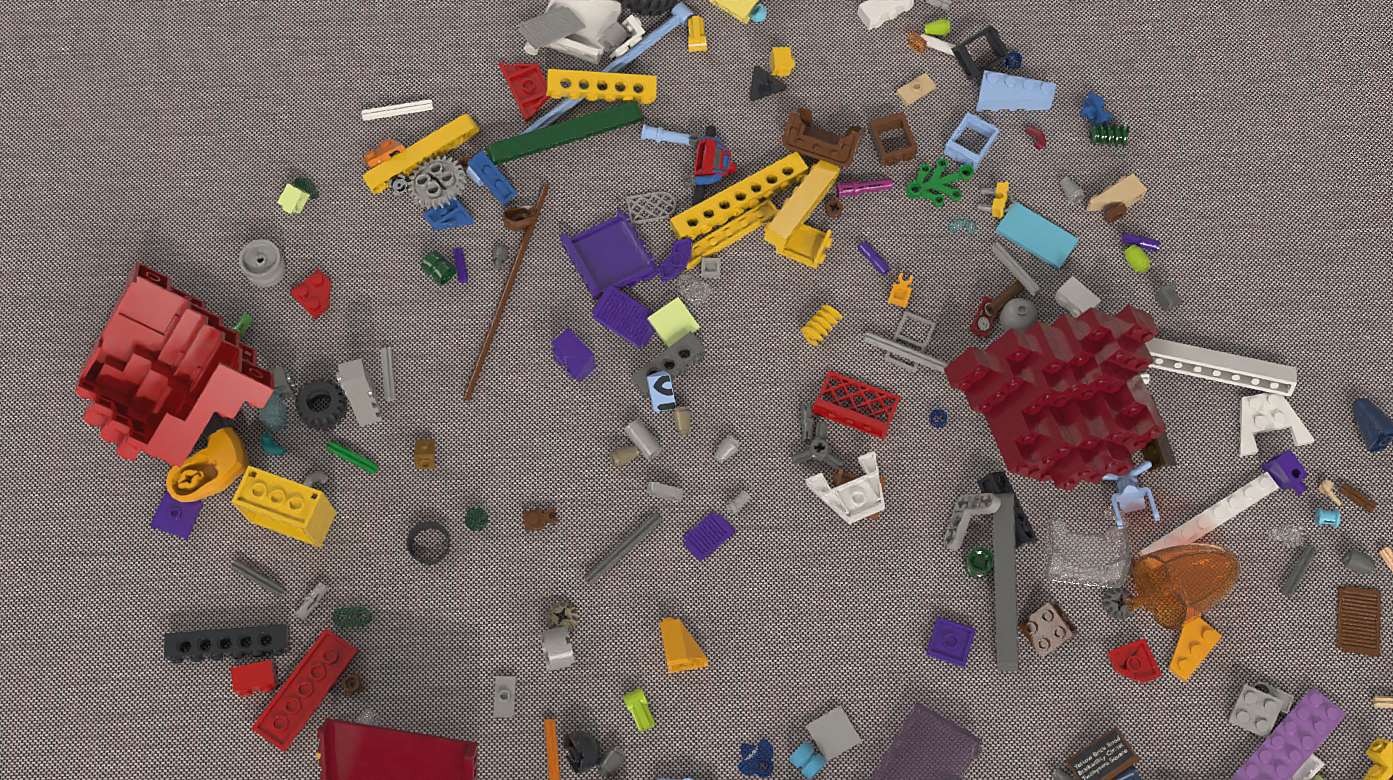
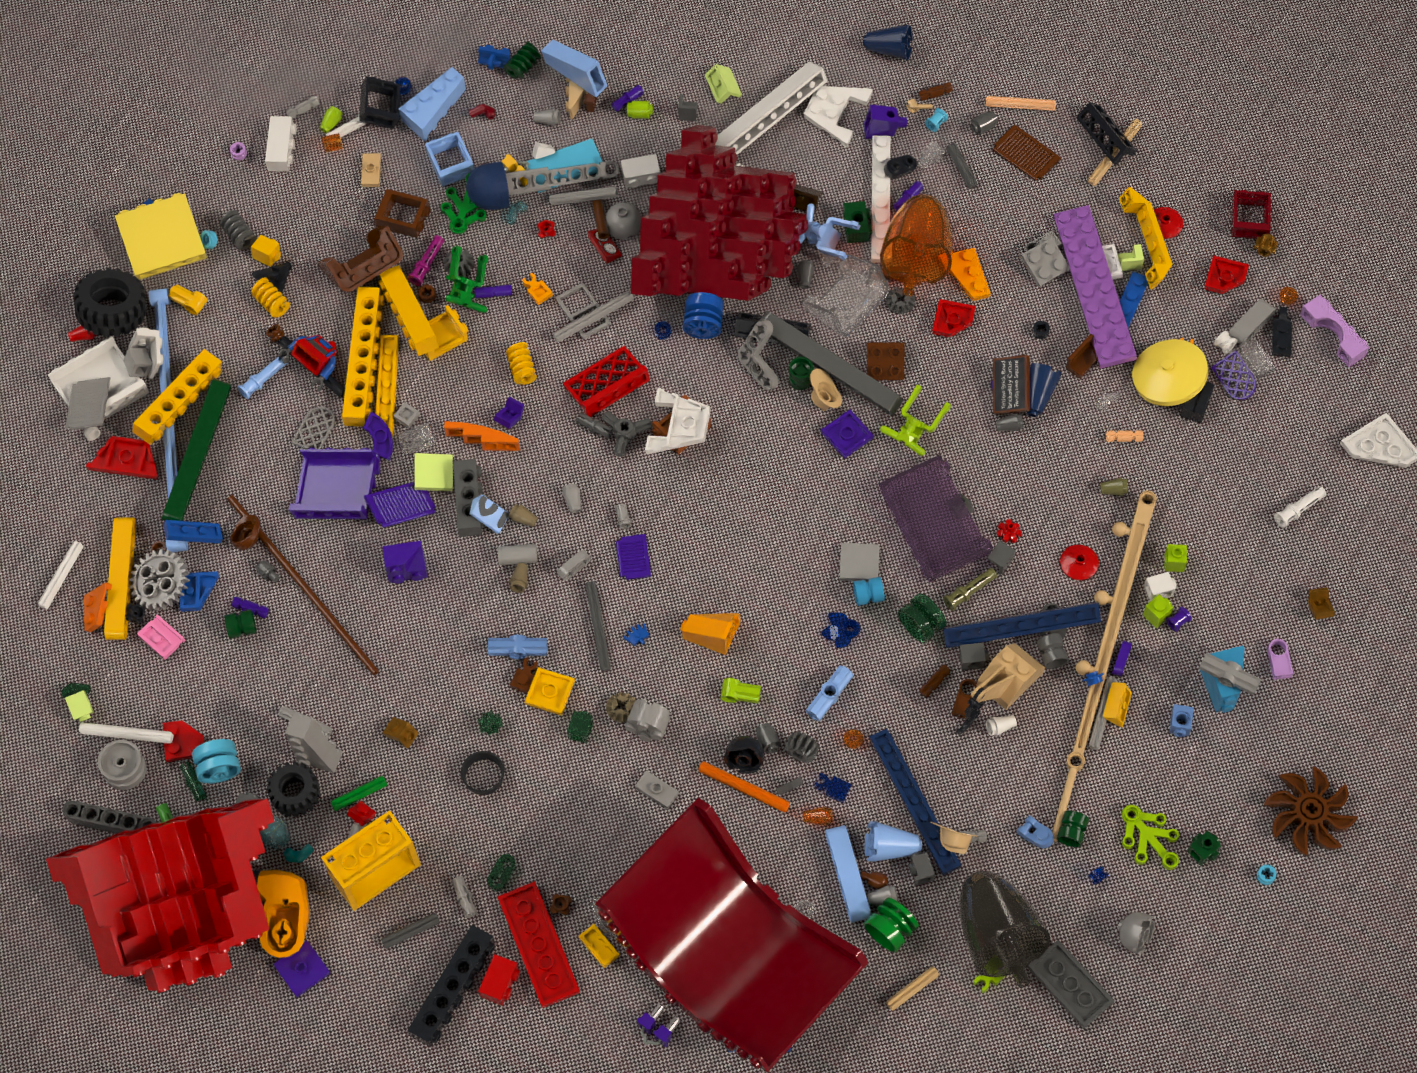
camera: 55 degrees left, 5 degrees down
(210, 280) = (102, 816): none -> dark grey beam
(284, 325) = (193, 782): none -> clear green pin
(293, 248) = (126, 732): none -> white axle
(306, 330) = (216, 761): none -> medium azure wheel
(334, 471) = (361, 813): none -> red plate
(390, 217) = (161, 637): none -> bright pink plate
(520, 595) = (580, 726): none -> clear green brick
(537, 548) = (549, 691): none -> yellow plate
(560, 495) = (517, 646): none -> medium blue piece
(637, 587) = (637, 635): none -> blue piece
(712, 118) = (275, 333): none -> reddish brown bush
(733, 343) = (487, 437): none -> orange slope
(740, 93) = (270, 298): none -> yellow piece
(768, 347) = (510, 413): none -> dark purple bracket
(783, 27) = (237, 230): none -> dark grey piece
(858, 230) = (462, 286): none -> green piece
(886, 213) = (465, 264): none -> dark grey gear
(964, 189) = (490, 185): none -> piece
(964, 255) = (546, 224): none -> red plate
(973, 443) = (703, 315): none -> blue wheel
(976, 594) = (824, 390): none -> tan piece
(998, 697) = (913, 428): none -> lime piece
(1036, 207) = (541, 150): none -> white slope
(1082, 503) = (805, 273): none -> dark grey cone
(1131, 179) = (575, 66): none -> light blue slope
(1173, 504) = (857, 212): none -> dark green brick
(1188, 747) = (1041, 335): none -> black bush
(1218, 309) = (722, 83): none -> yellowish green panel
(1231, 543) = (915, 189): none -> dark purple pin
(1254, 517) = (904, 165): none -> black plate

